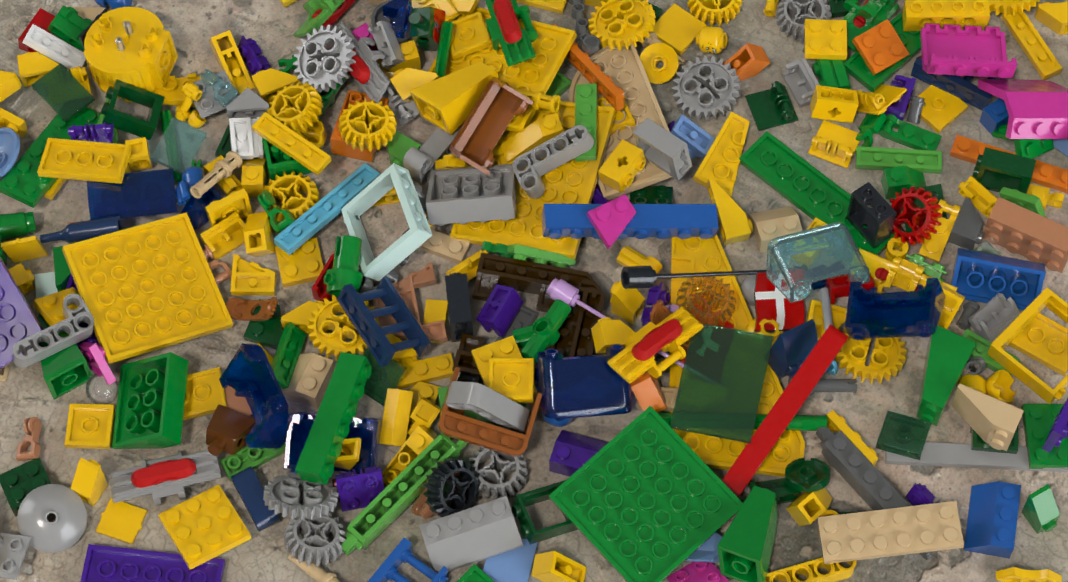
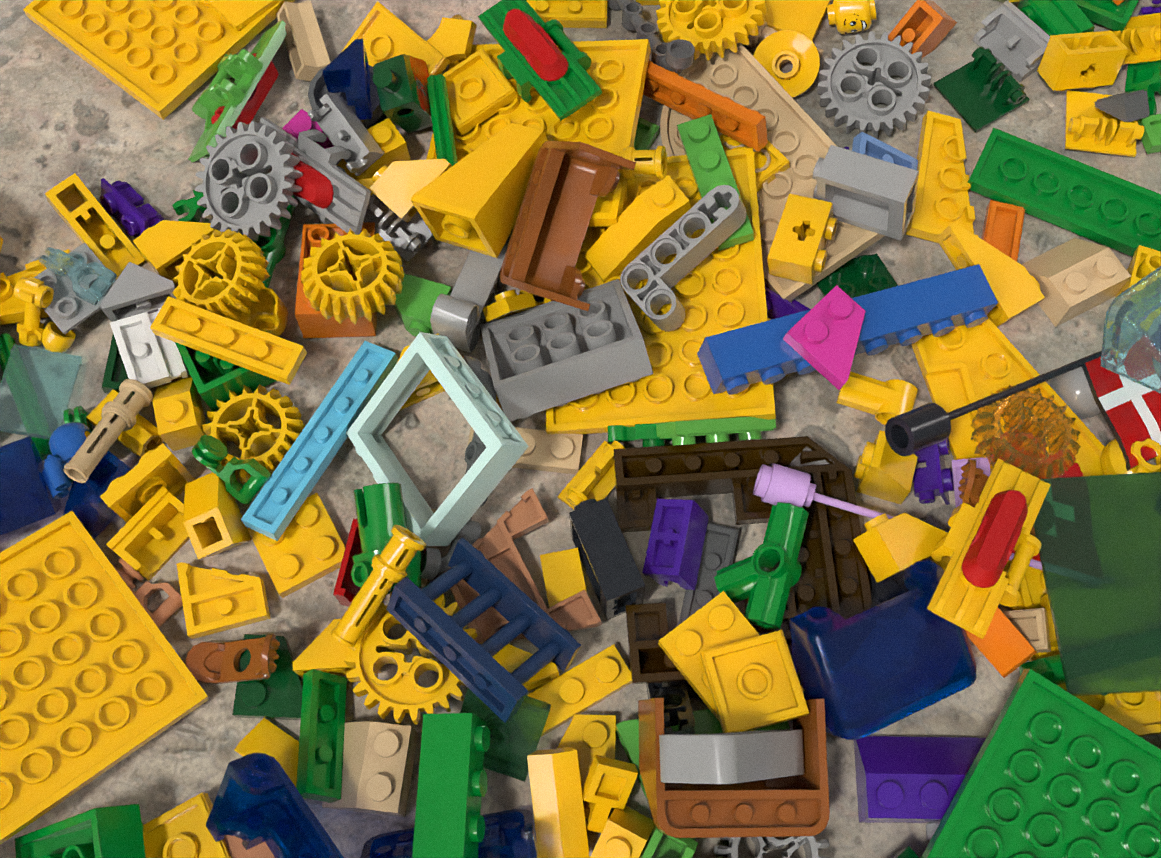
camera: 15 degrees left, 5 degrees up
(343, 277) = (387, 569): none -> yellow pin
(750, 192) = (1003, 227): none -> orange tile
(848, 137) = (1125, 106): none -> dark grey slope

